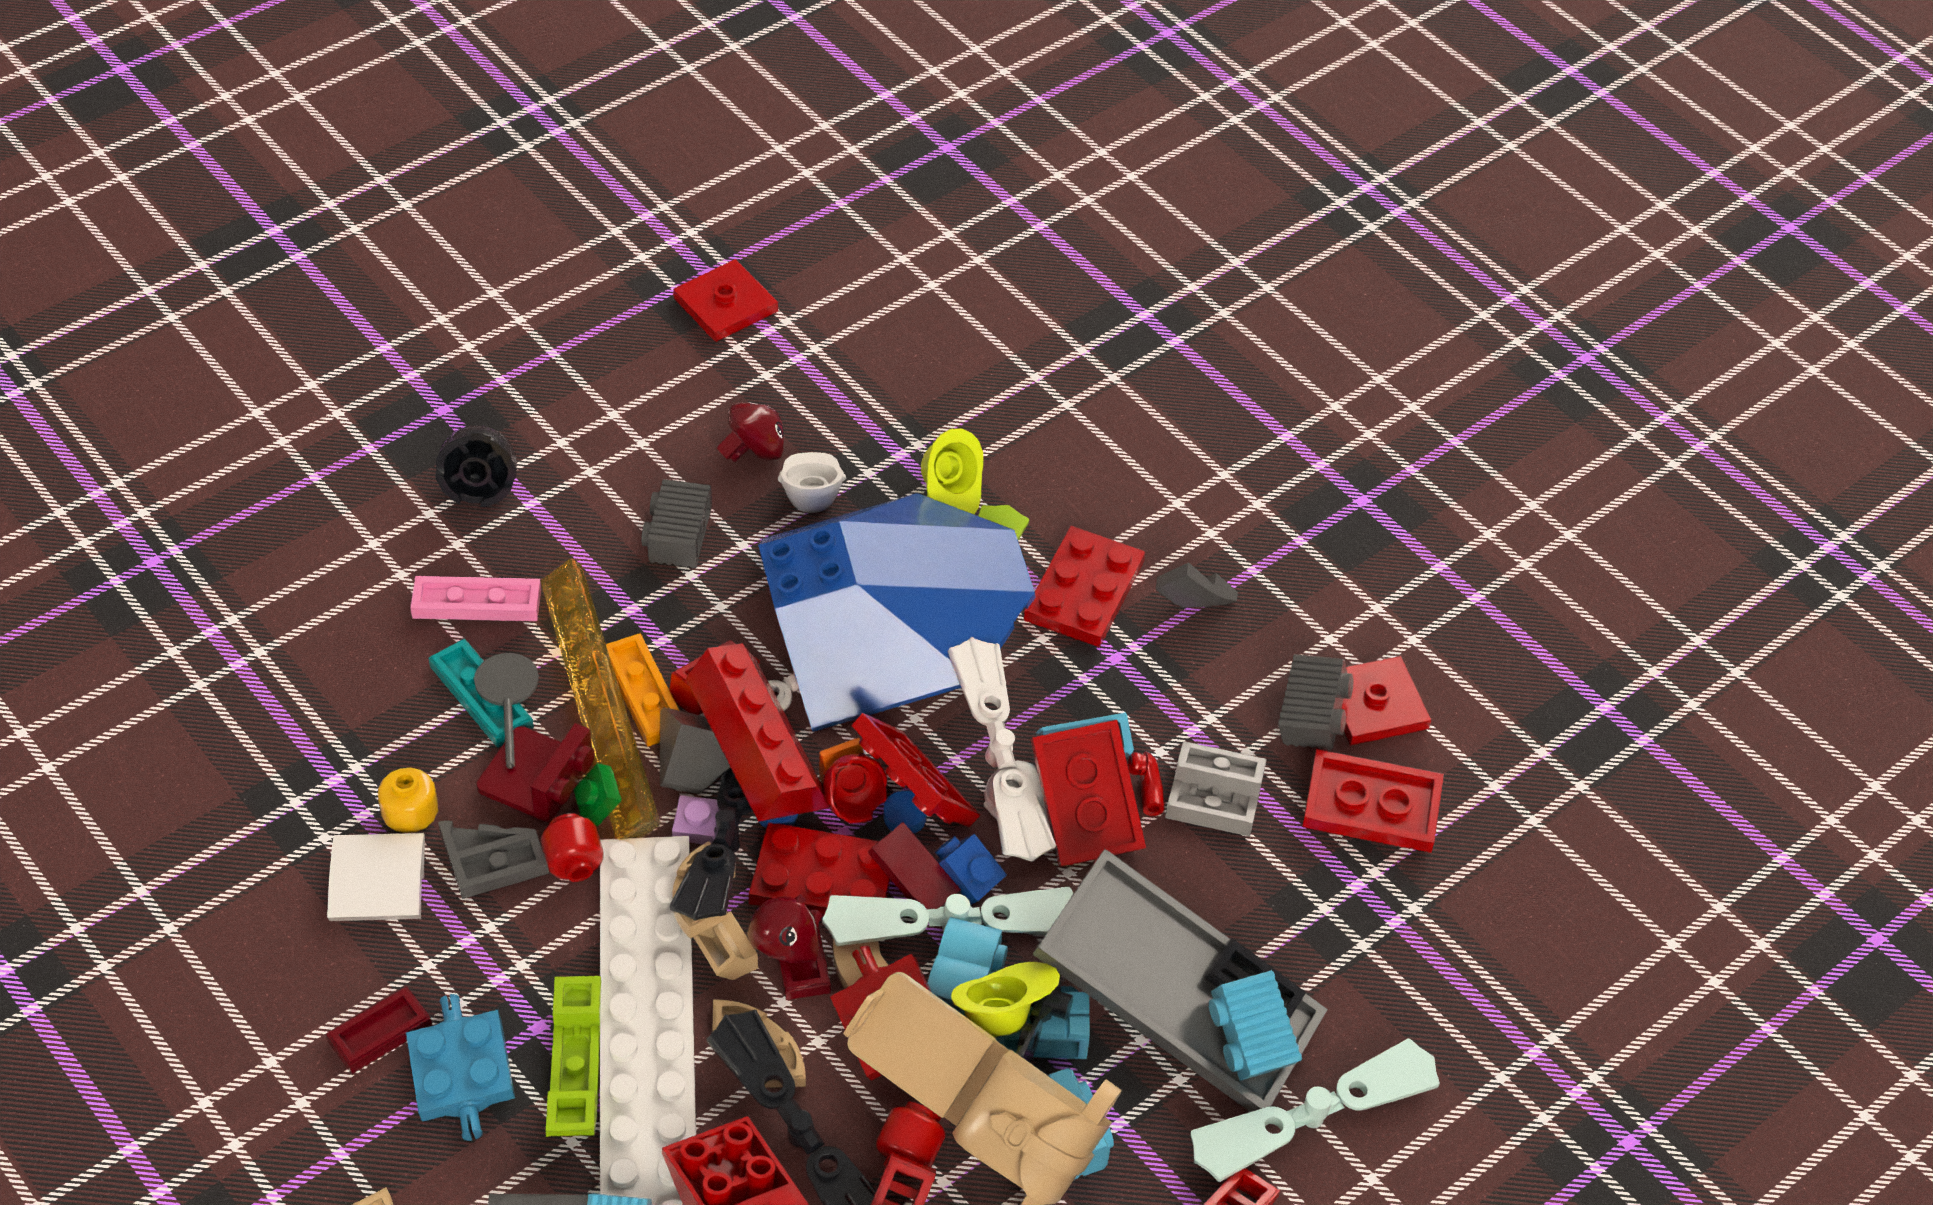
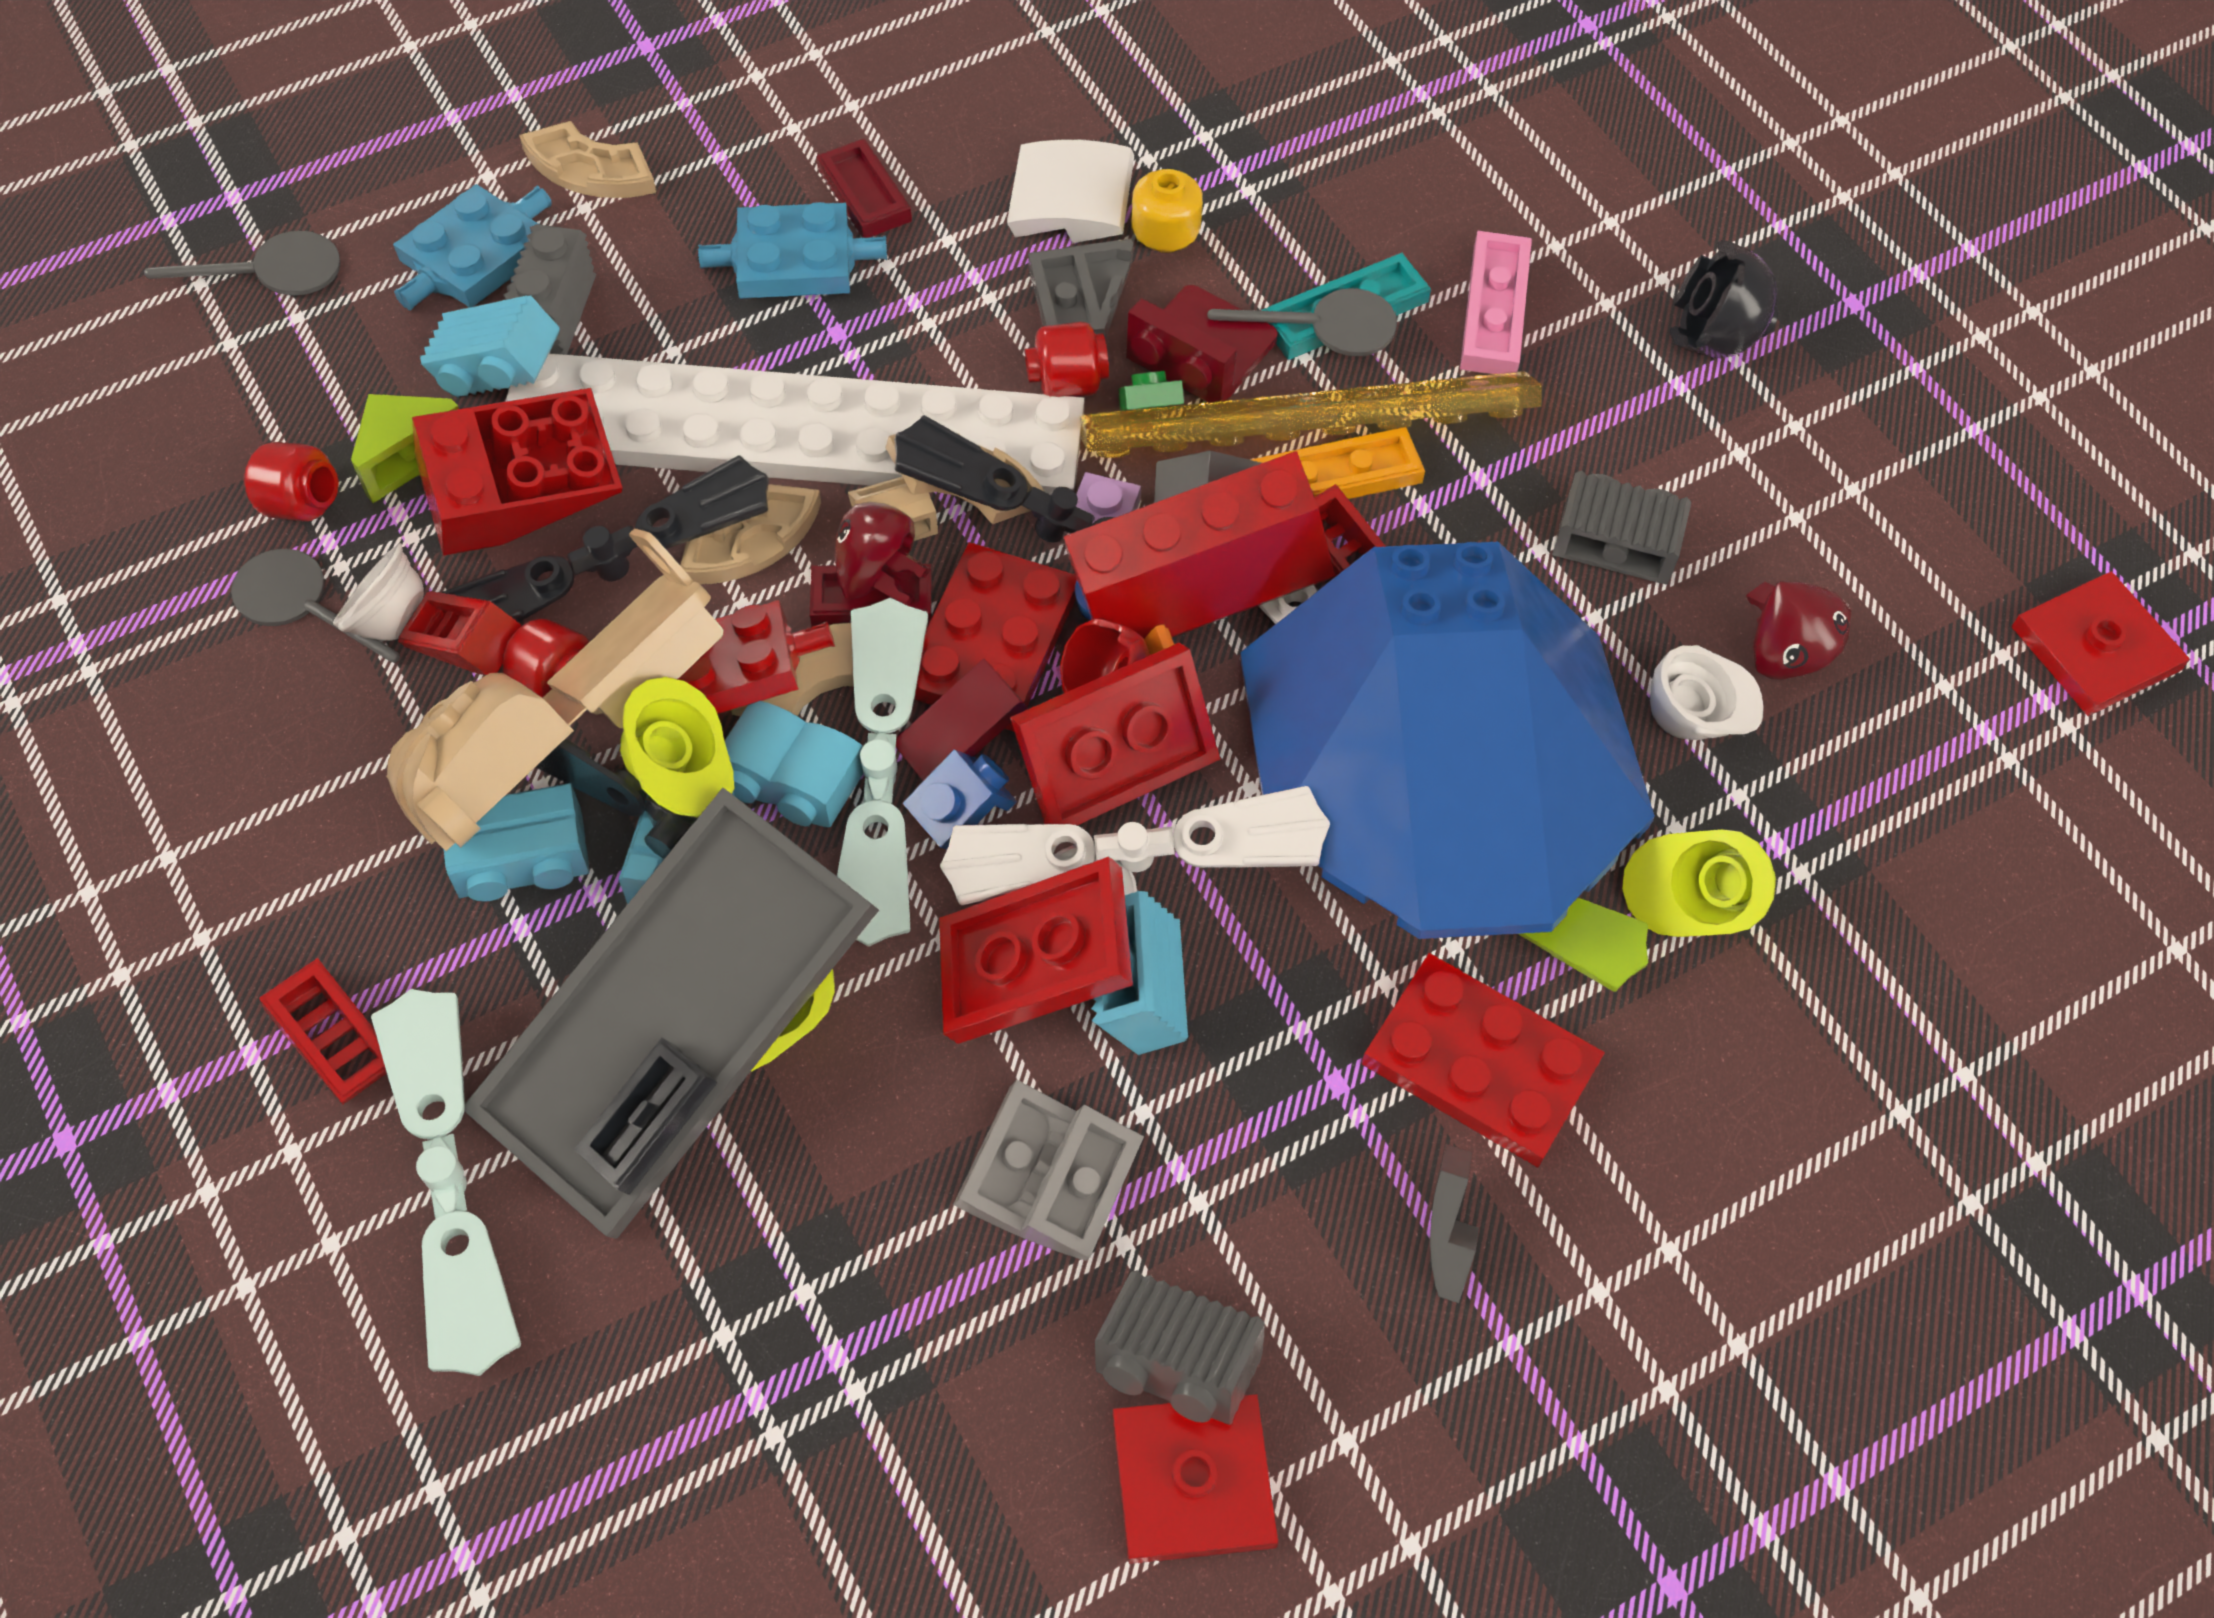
camera: 100 degrees right, 10 degrees up
(575, 1057) = (691, 335): lime slope -> none
(1150, 781) = (1076, 1074): red arm -> none
(1254, 1025) = (560, 1084): medium azure brick -> none
(1373, 801) = (975, 1411): red plate -> none

